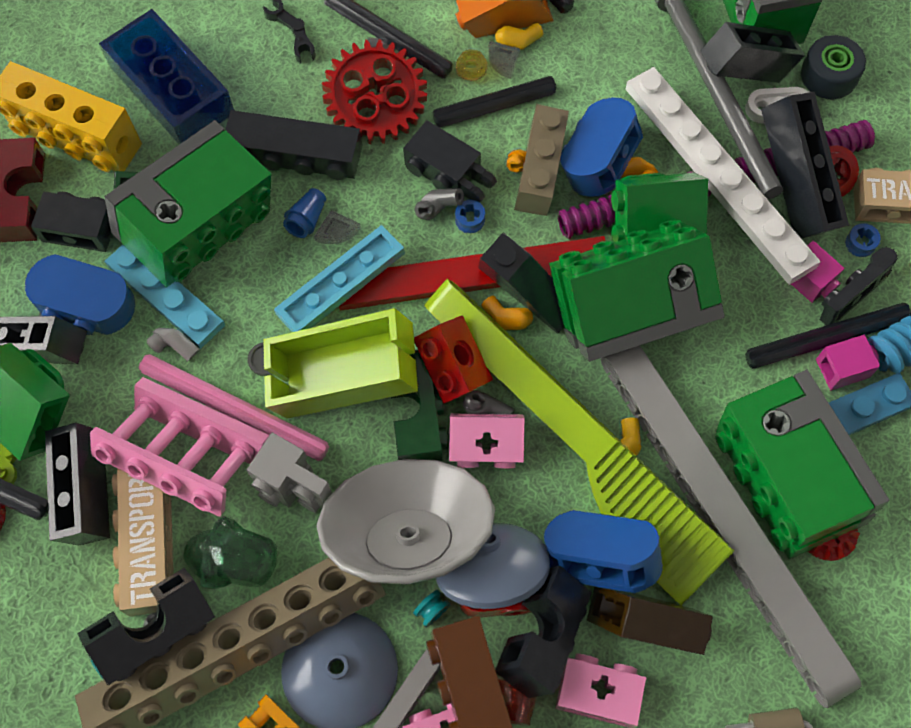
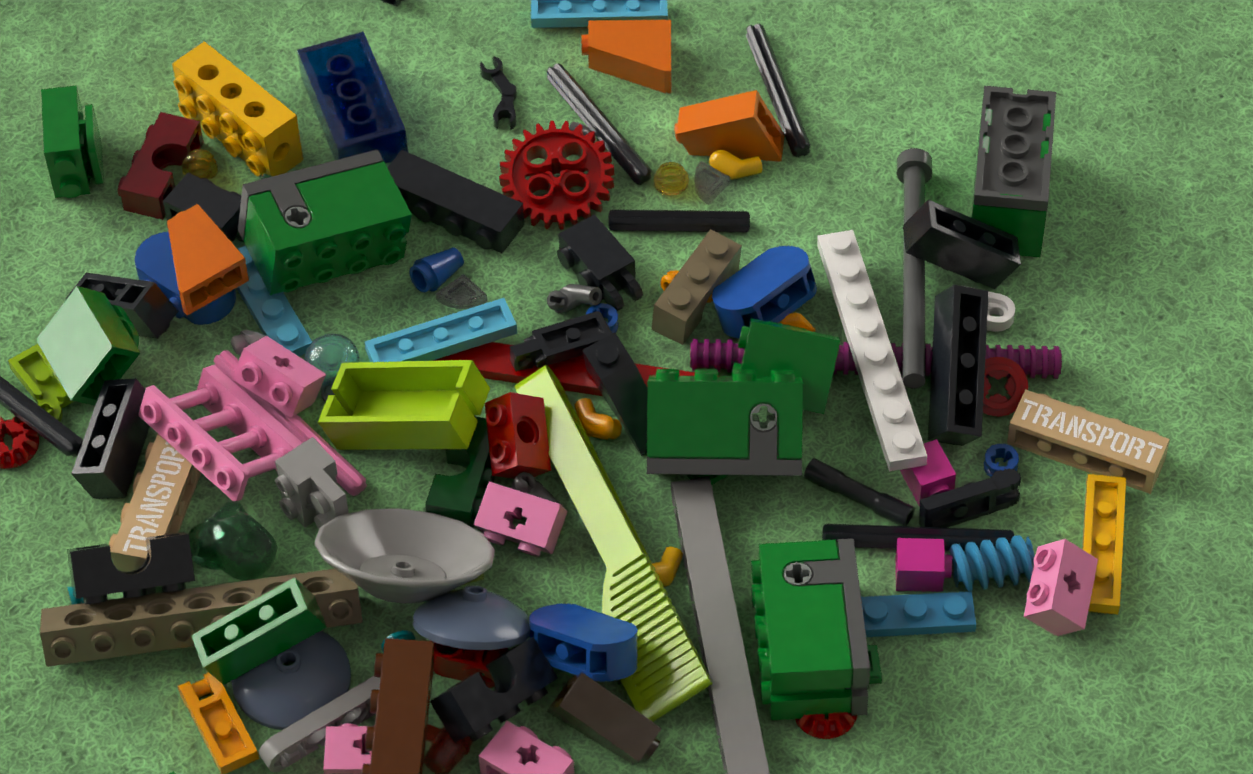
camera: 20 degrees right, 15 degrees down
(51, 178) = (200, 163): none -> clear yellow plate
(92, 277) = (203, 259): none -> orange slope
(207, 369) = (278, 376): none -> bright pink brick
(245, 332) = (329, 352): none -> clear light blue hair
(301, 656) = (258, 631): none -> green brick
(450, 250) = (559, 341): none -> black hinge
(782, 312) = (838, 482): none -> black piece
(833, 67) = (1055, 287): black wheel -> none

